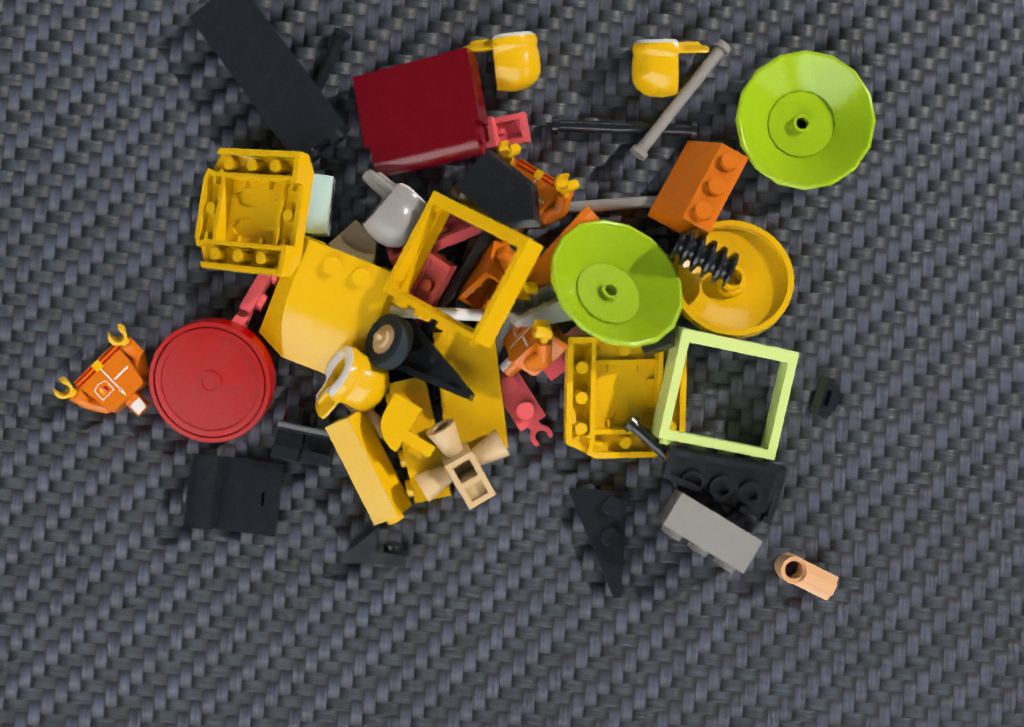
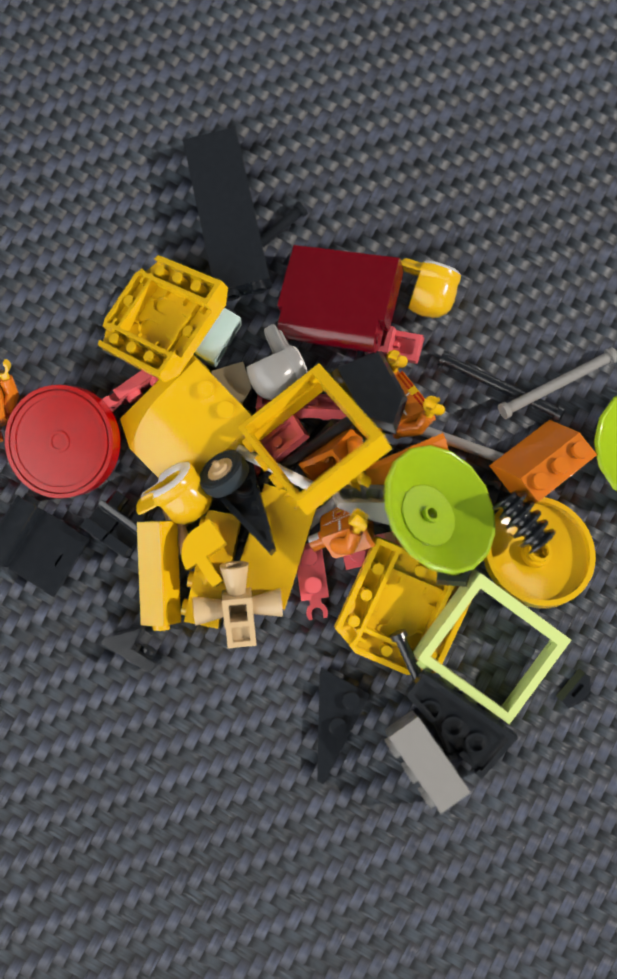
camera: 25 degrees right, 5 degrees down
(657, 65) = (552, 343): yellow piece -> none
(807, 576) = (494, 839): light nougat piece -> none

